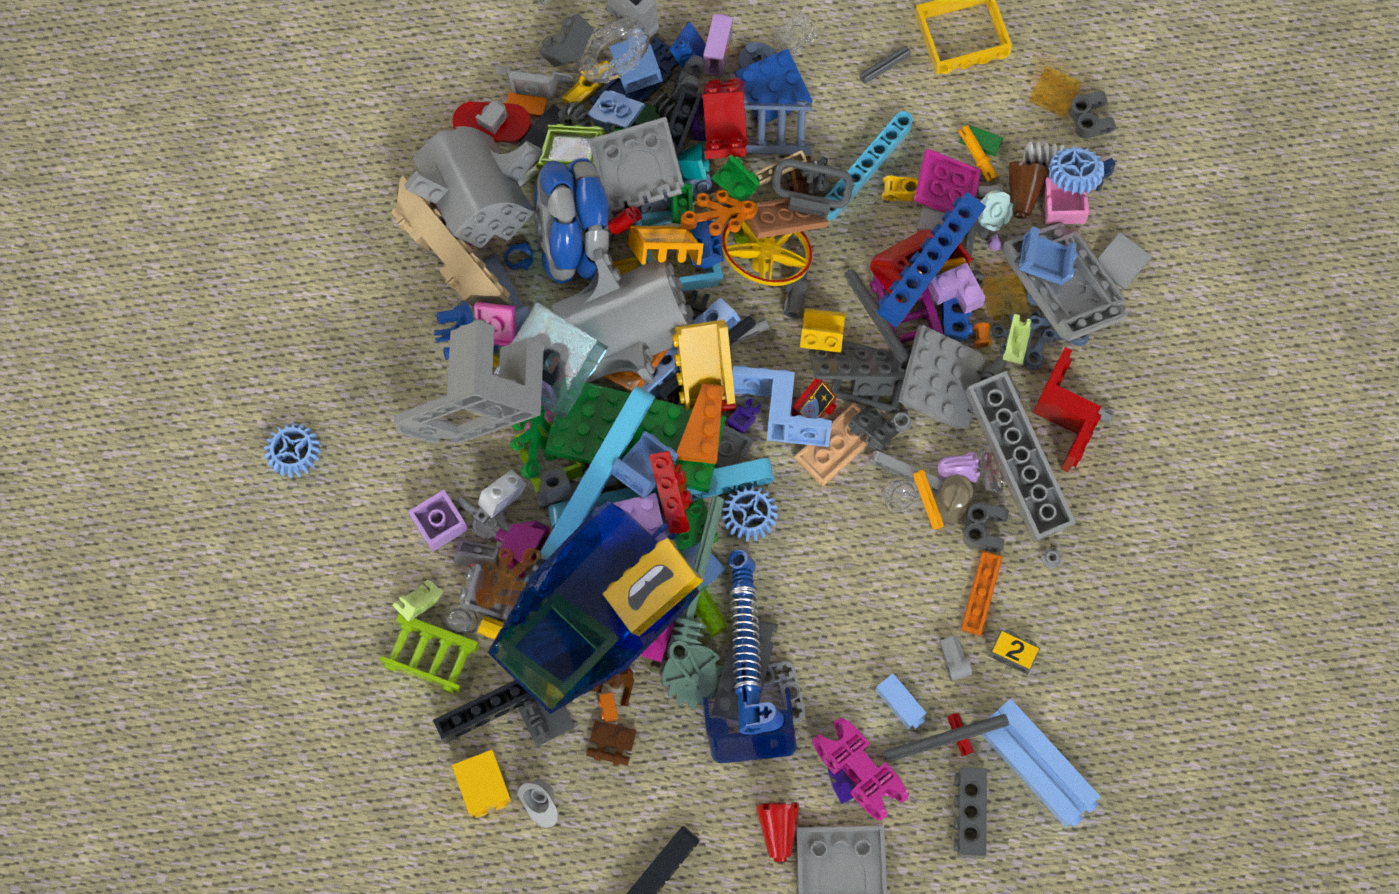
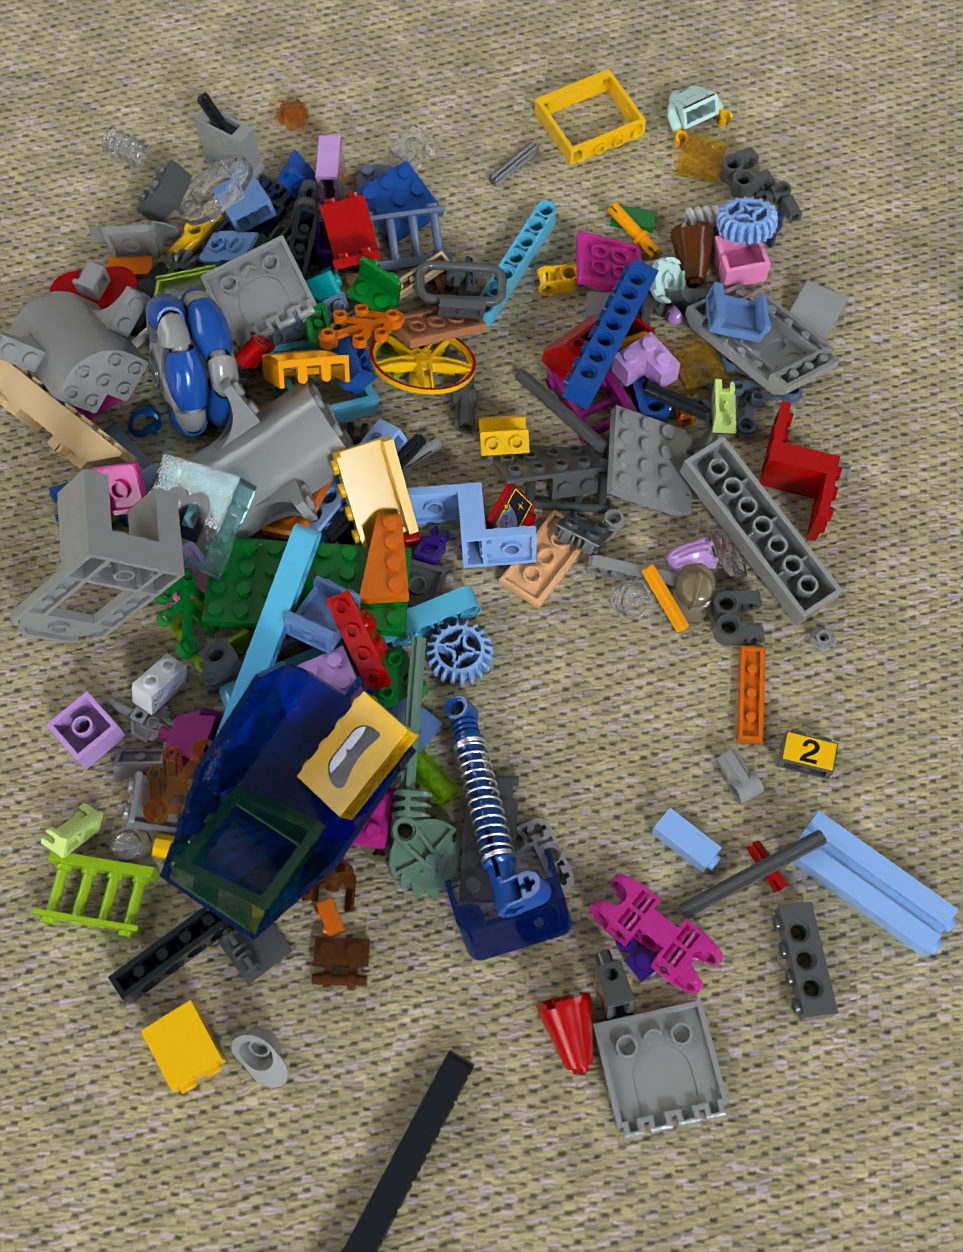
camera: 10 degrees left, 5 degrees down
(817, 802) = (614, 995): none -> dark grey torso
(977, 327) = (677, 401): none -> black axle
(1012, 229) = (687, 297): none -> dark grey slope
(1058, 39) = (692, 107): none -> light aqua torso
(1119, 140) = (782, 194): none -> dark grey bar

